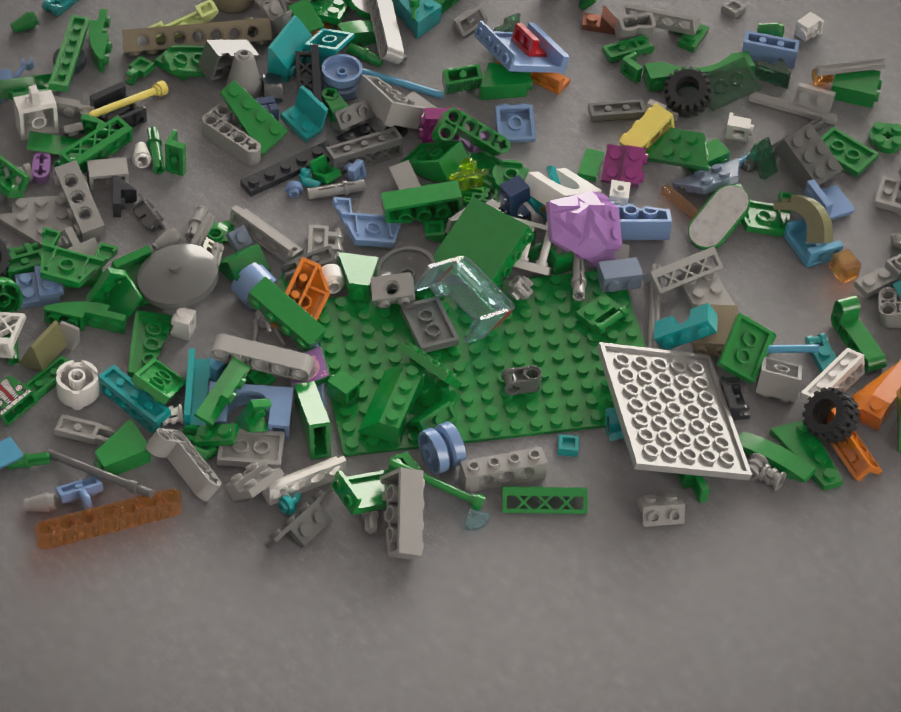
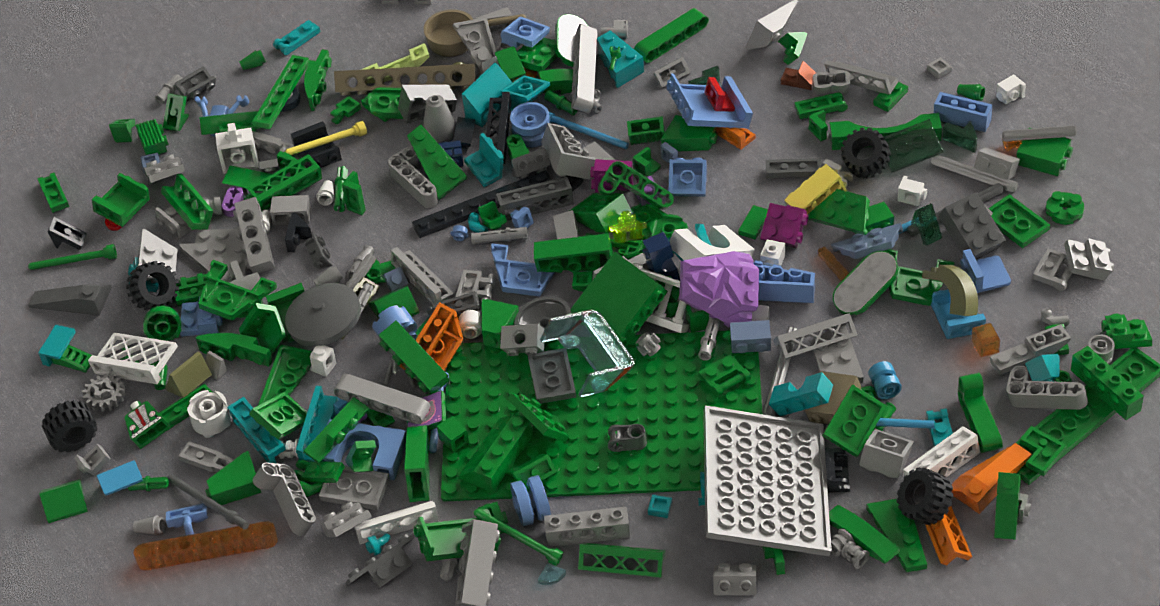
camera: 20 degrees right, 0 degrees up
(465, 104) = (644, 163): none -> green panel
(489, 100) = (668, 152): none -> sand blue tile
(759, 308) = (884, 380): none -> dark azure wheel

